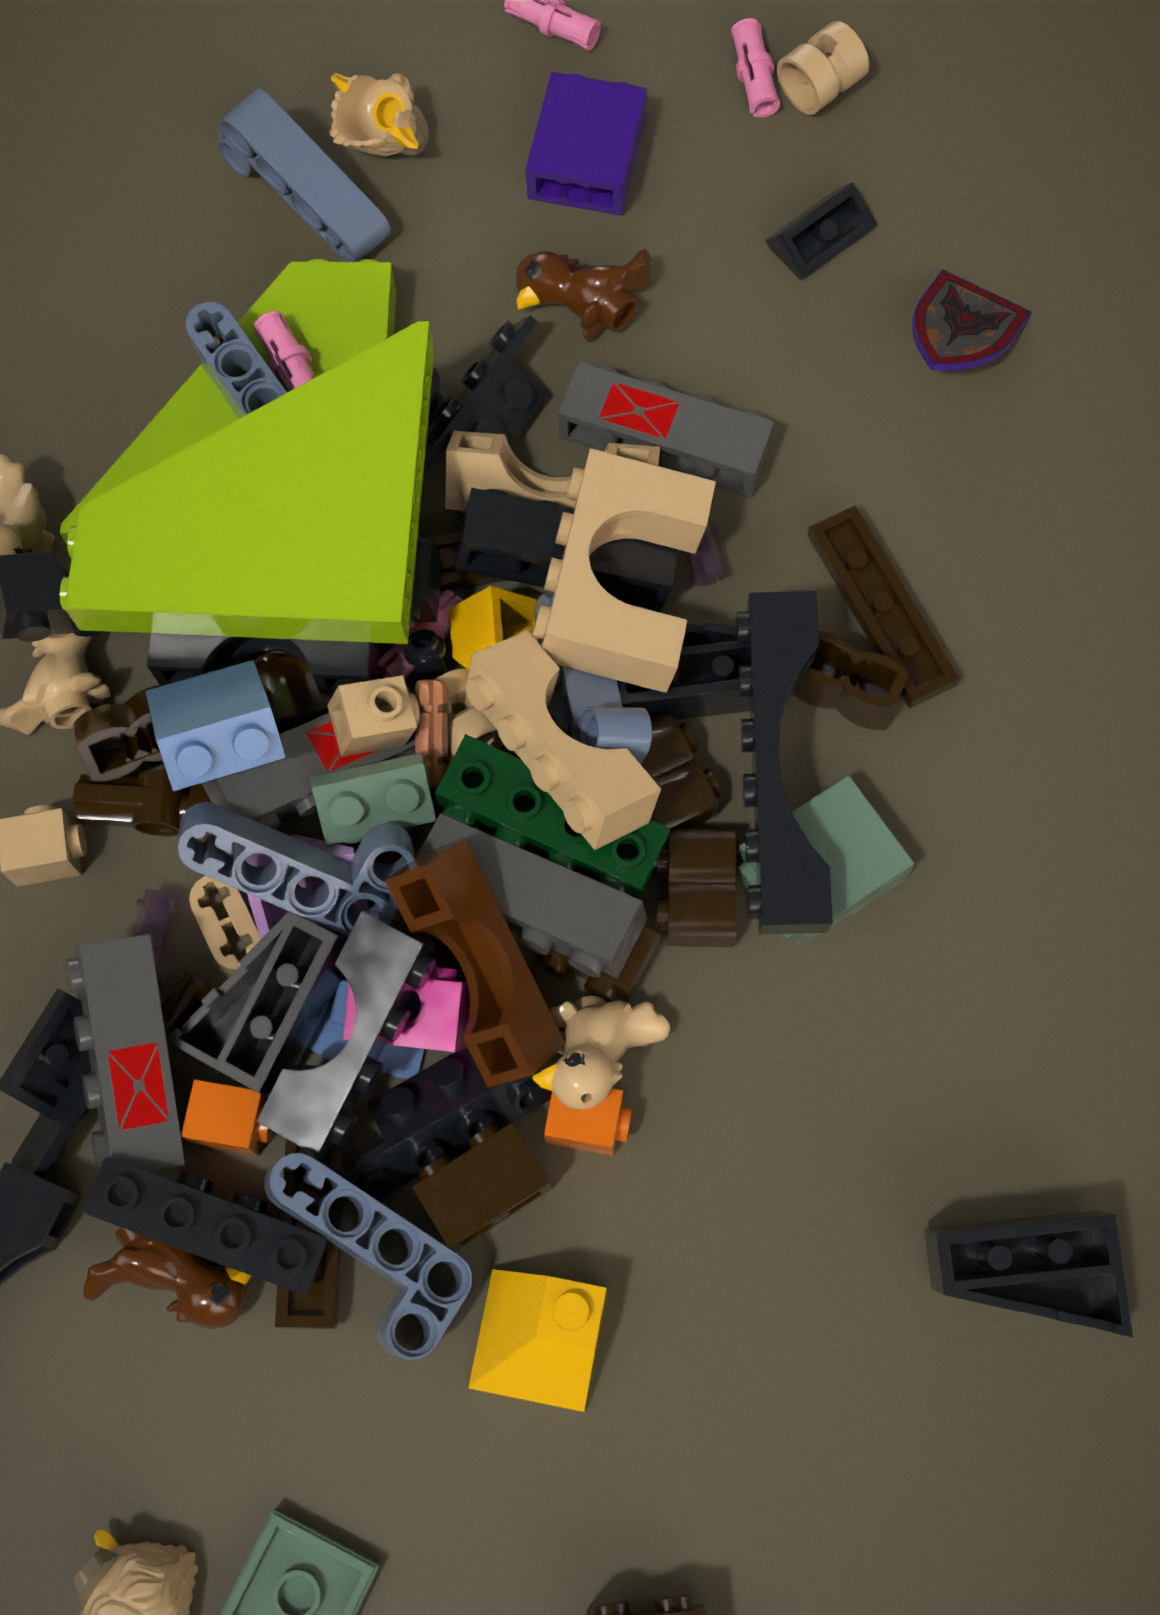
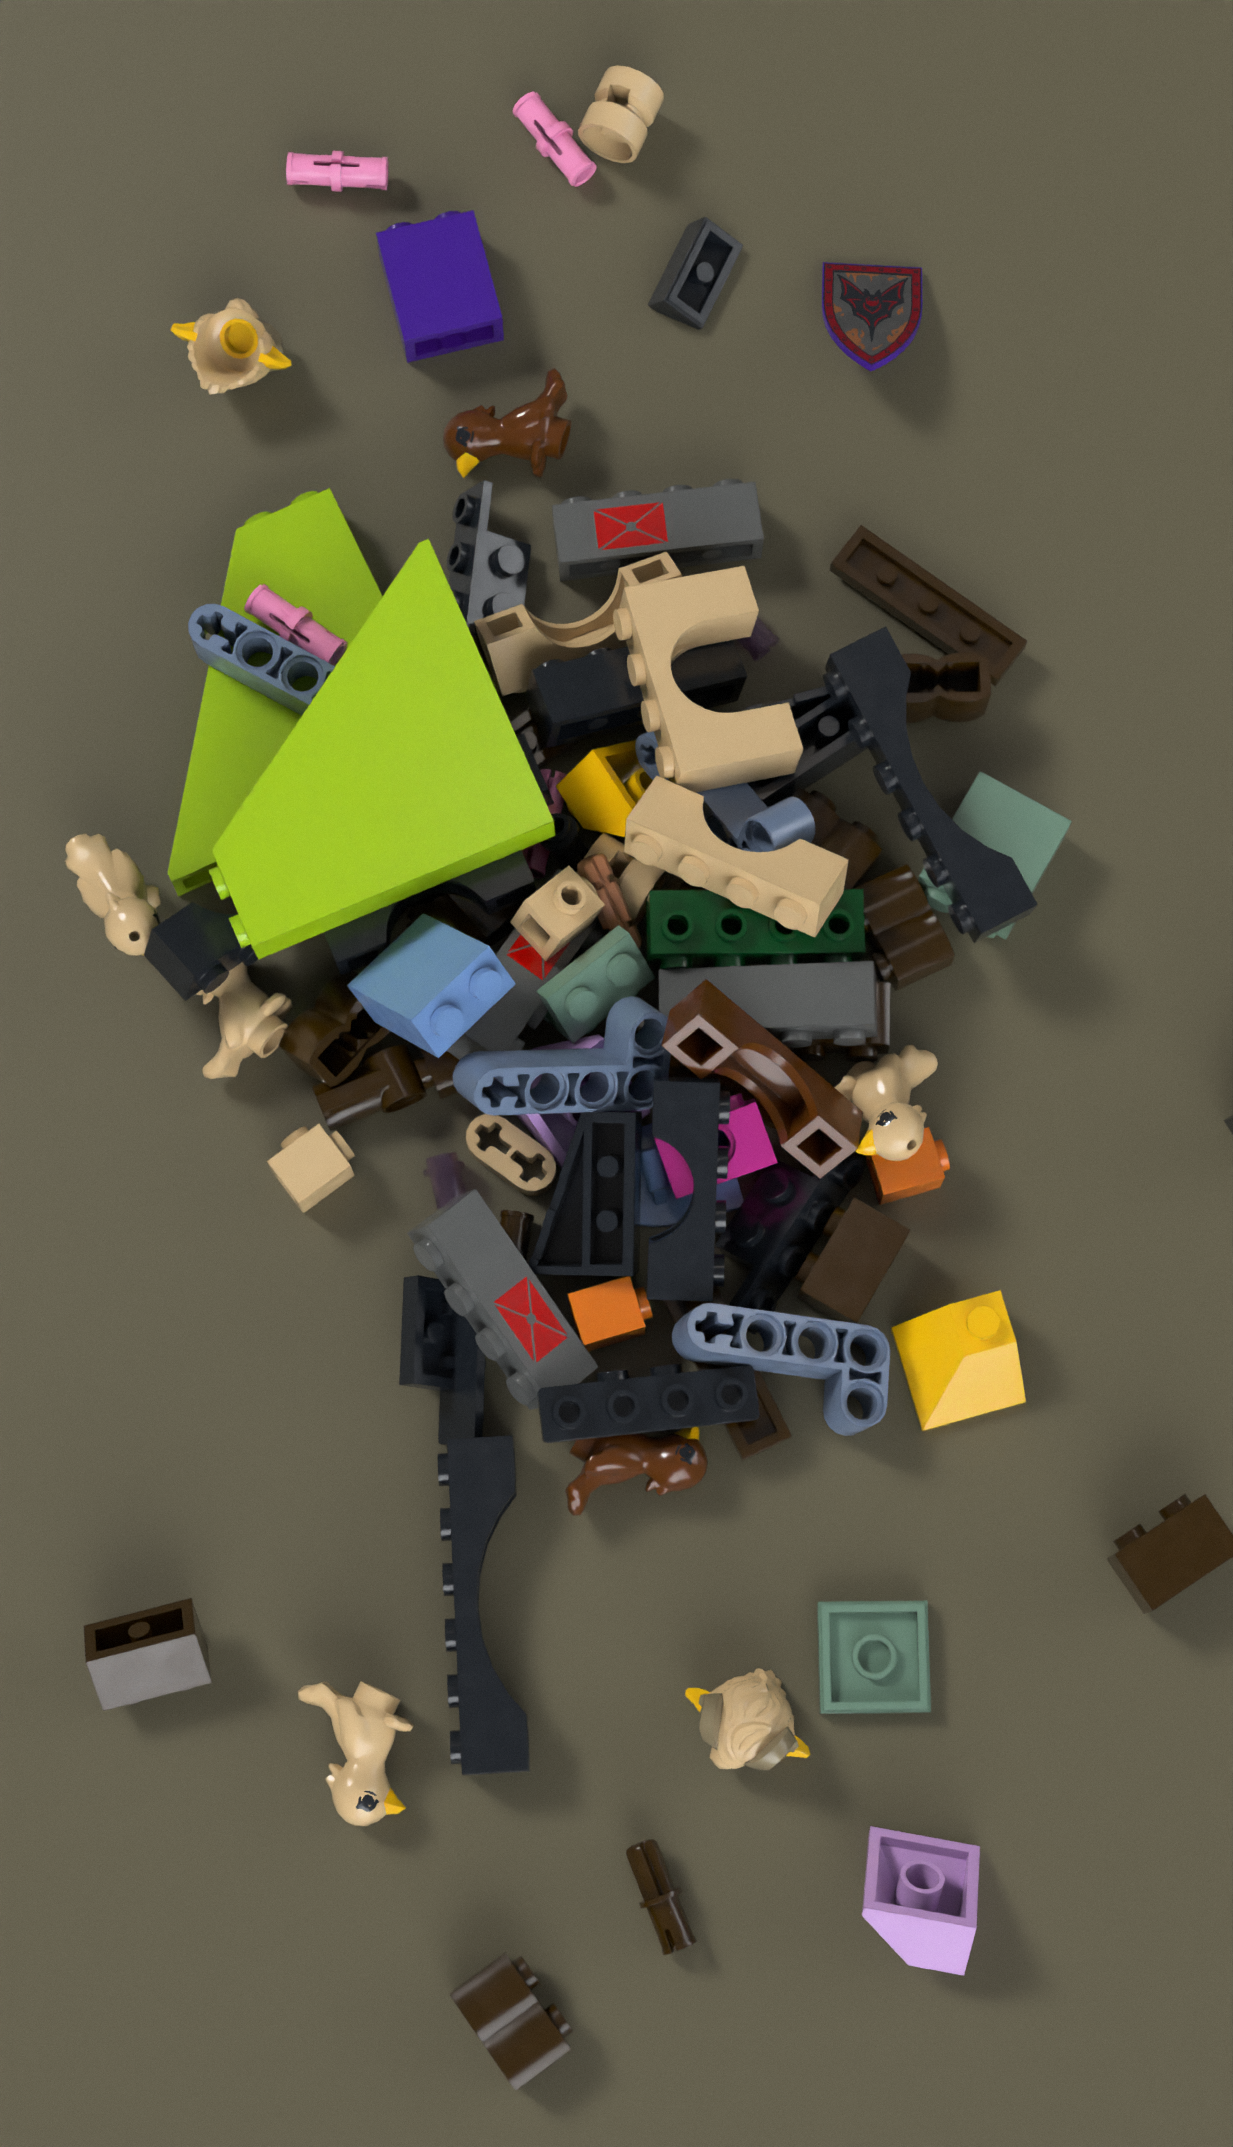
camera: 30 degrees left, 5 degrees up
(268, 140) = (195, 439): sand blue beam -> none

